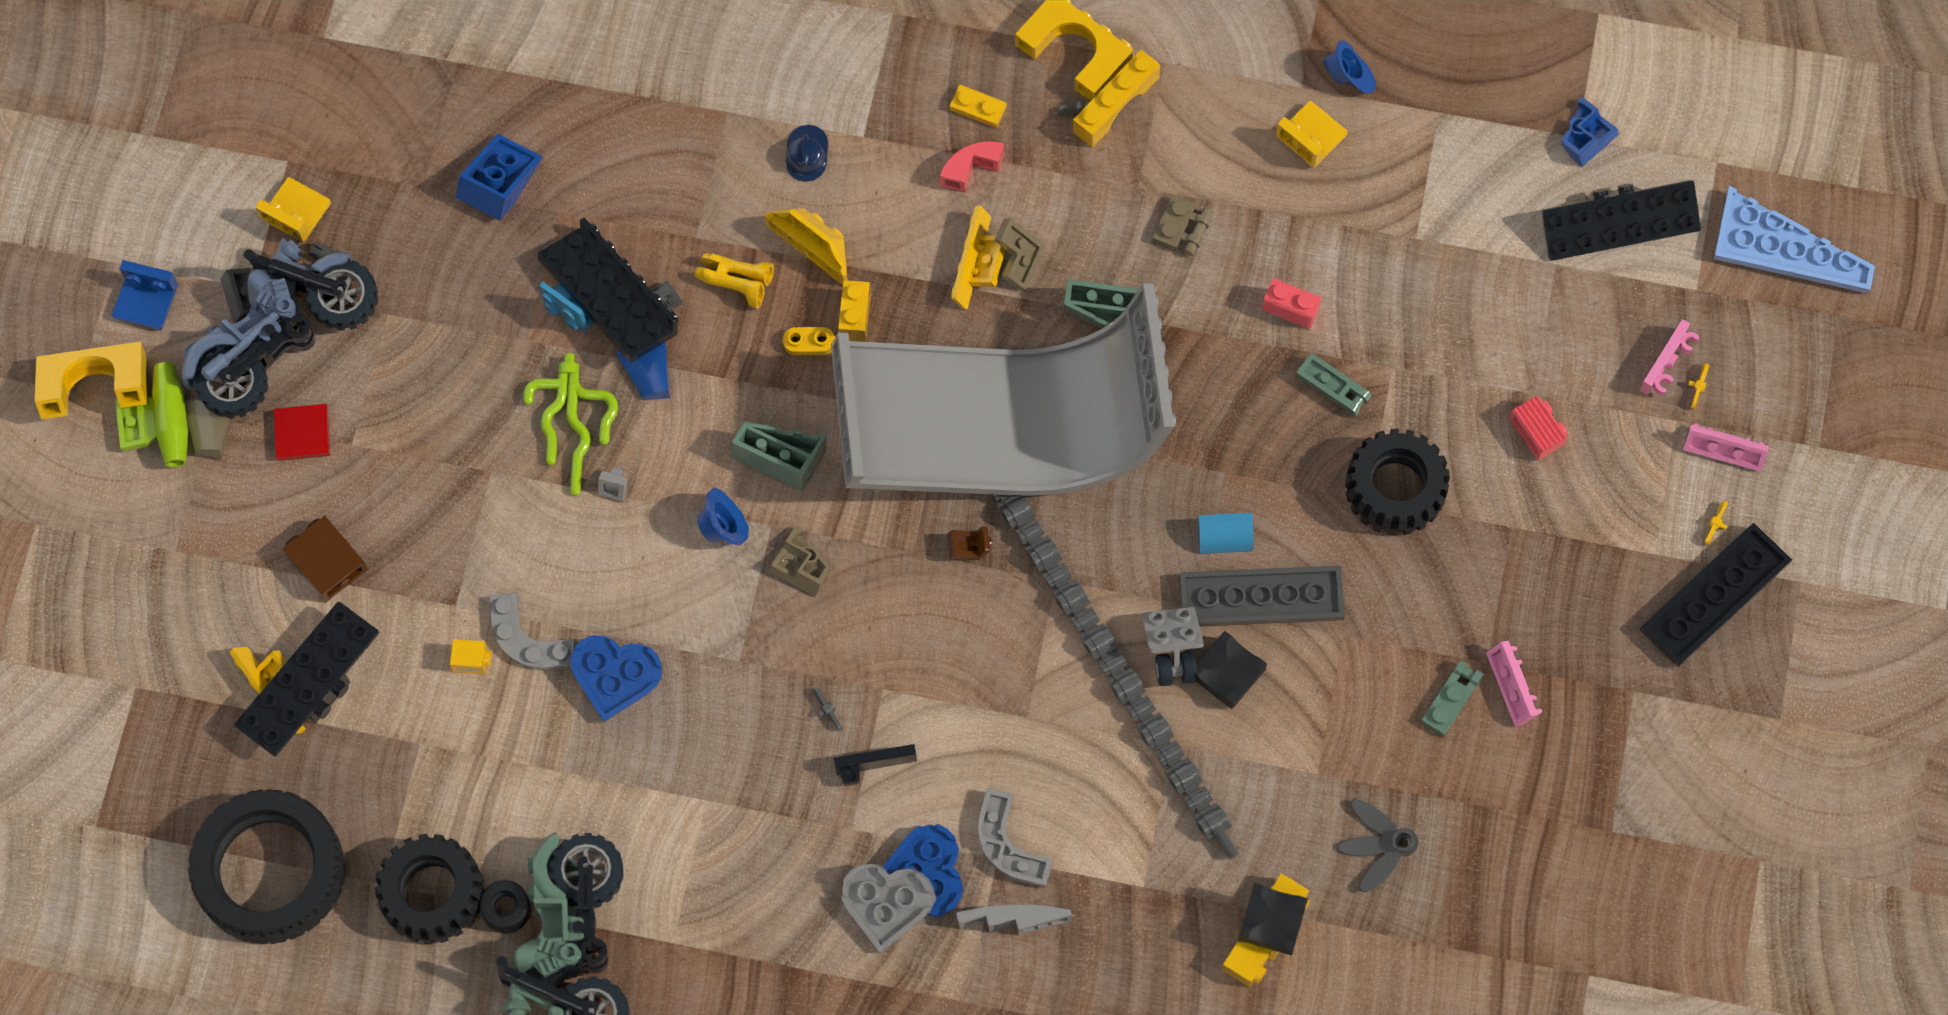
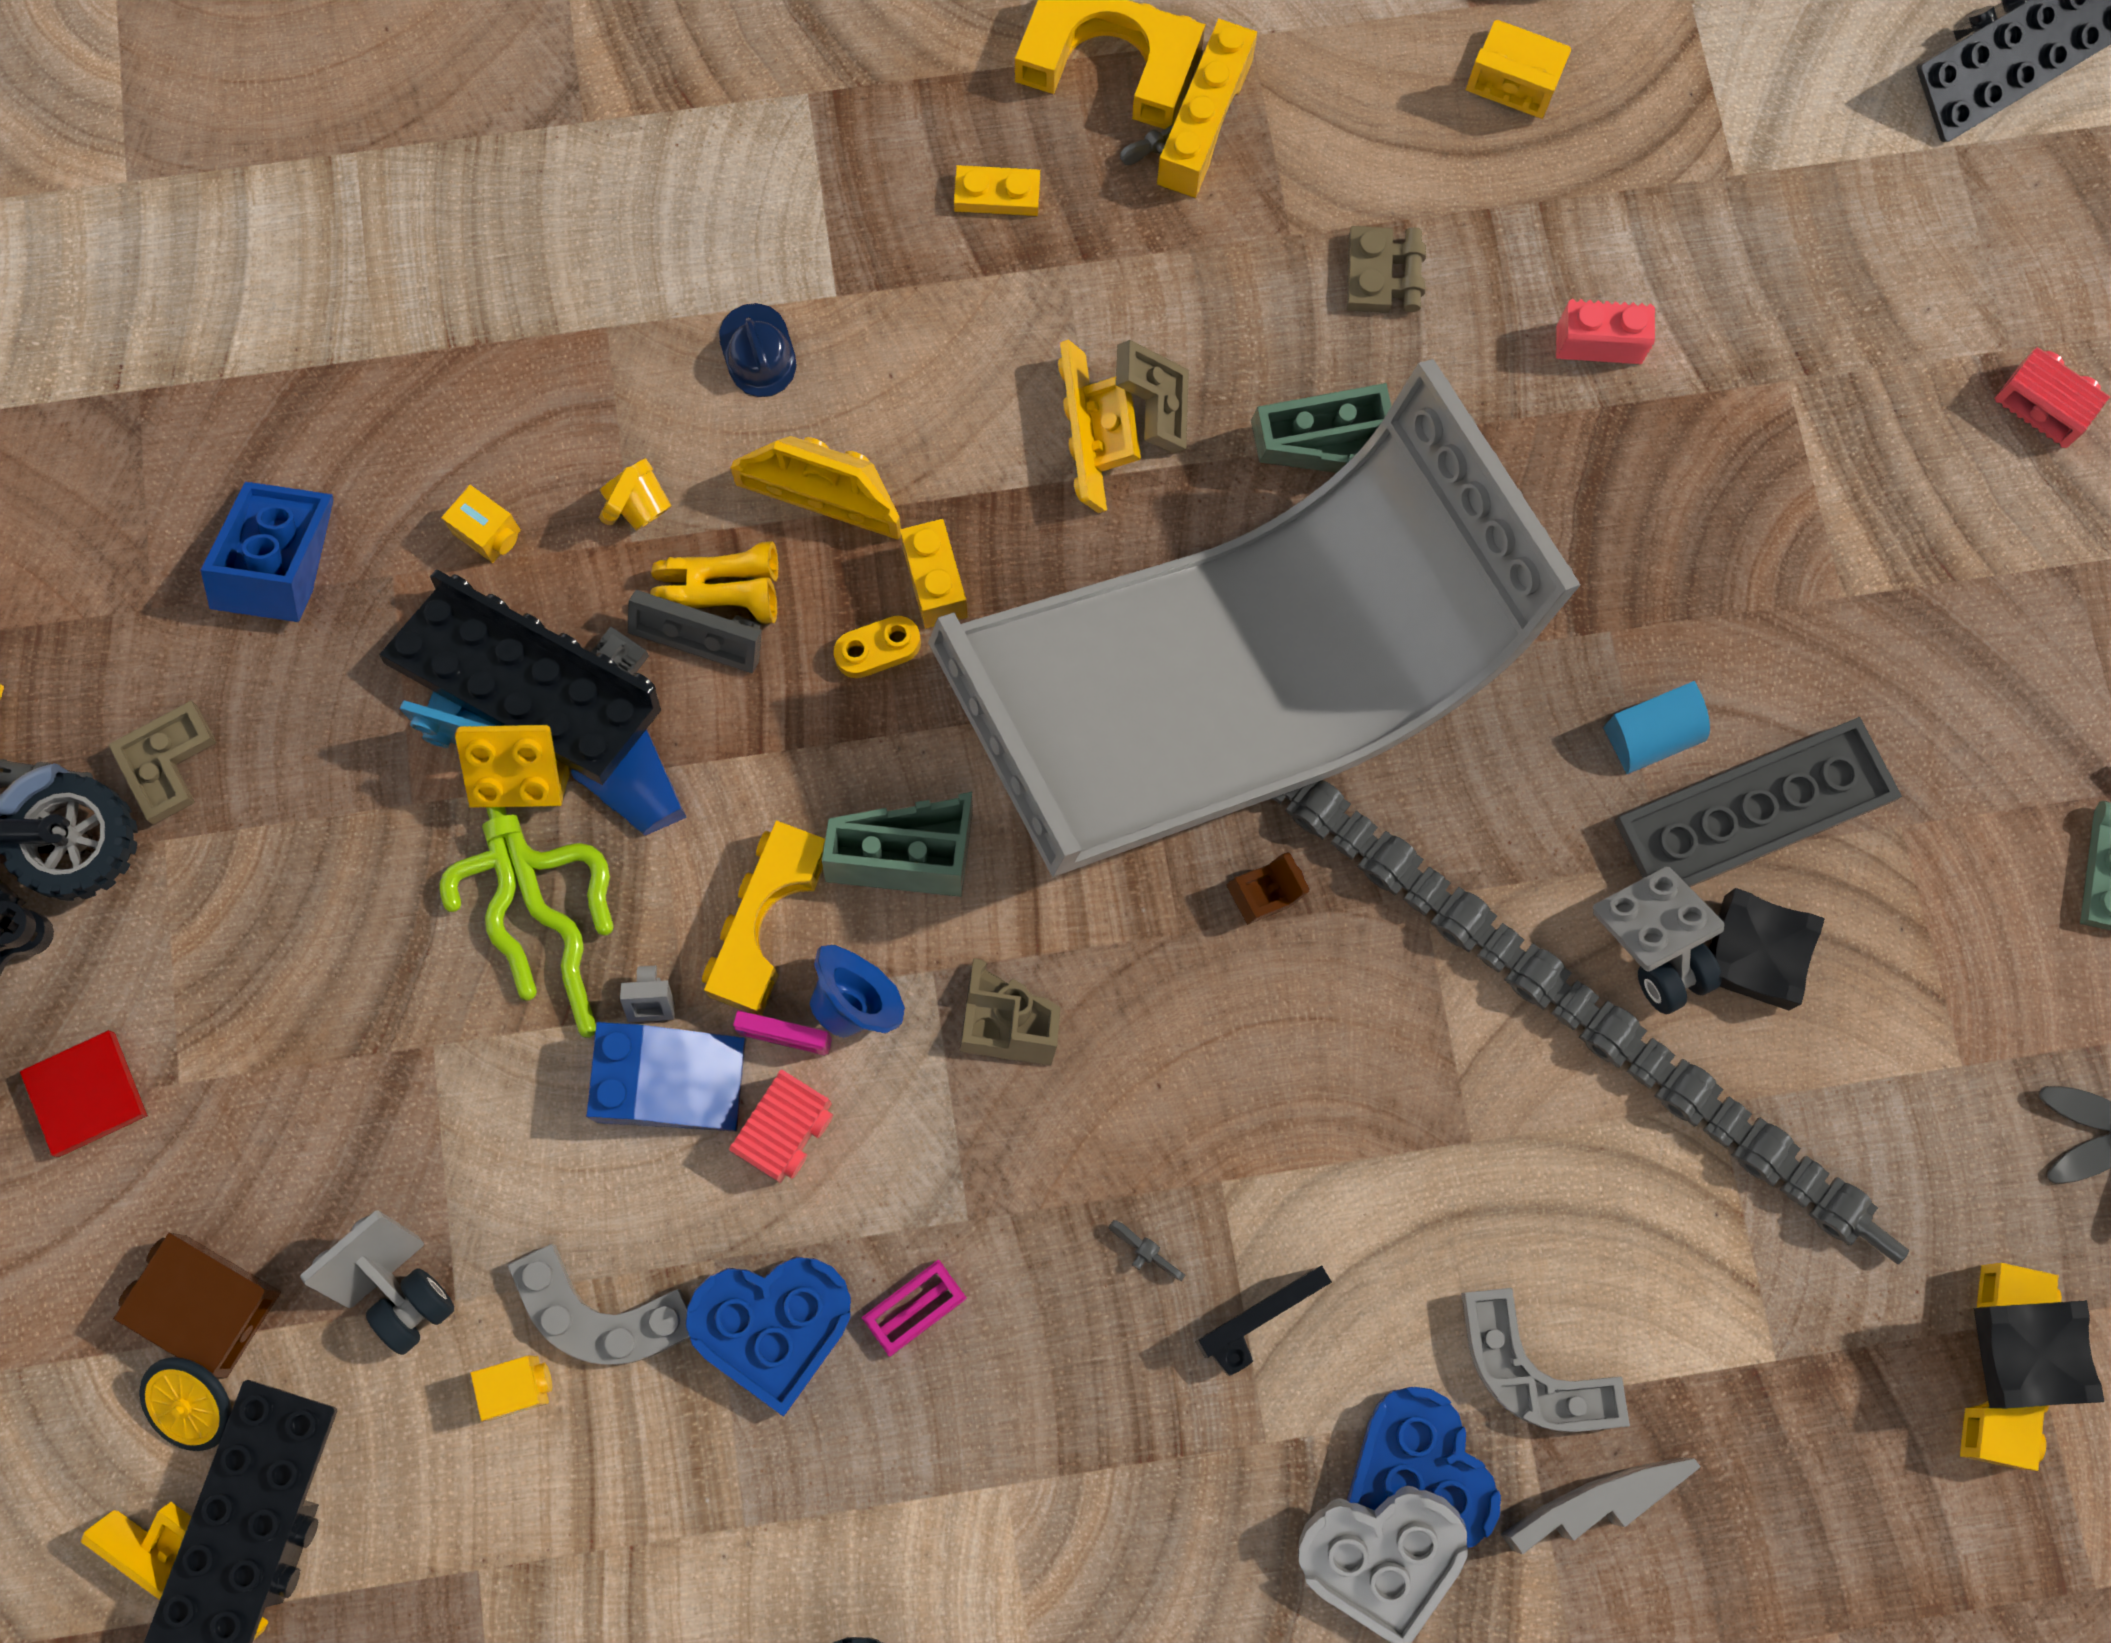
camera: 25 degrees left, 5 degrees up
(302, 605) = (185, 1403): none -> yellow wheel
(397, 266) = (151, 756): none -> dark tan plate
(418, 566) = (367, 1260): none -> light grey plate
(586, 336) = (510, 766): none -> yellow bracket
(607, 529) = (665, 1077): none -> slope
(617, 200) = (482, 524): none -> yellow brick
(659, 576) = (782, 1127): none -> coral brick
(677, 528) = (782, 1033): none -> dark pink tile
(694, 694) = (881, 1332): none -> dark pink tile
(706, 212) = (635, 496): none -> yellow piece
(712, 299) = (695, 631): none -> dark grey hinge
(712, 442) = (787, 865): none -> yellow arch
(959, 167) = (1035, 261): coral brick -> none
(1333, 384) = (1718, 436): sand green plate -> none
(1404, 450) = (1921, 511): black tyre -> none

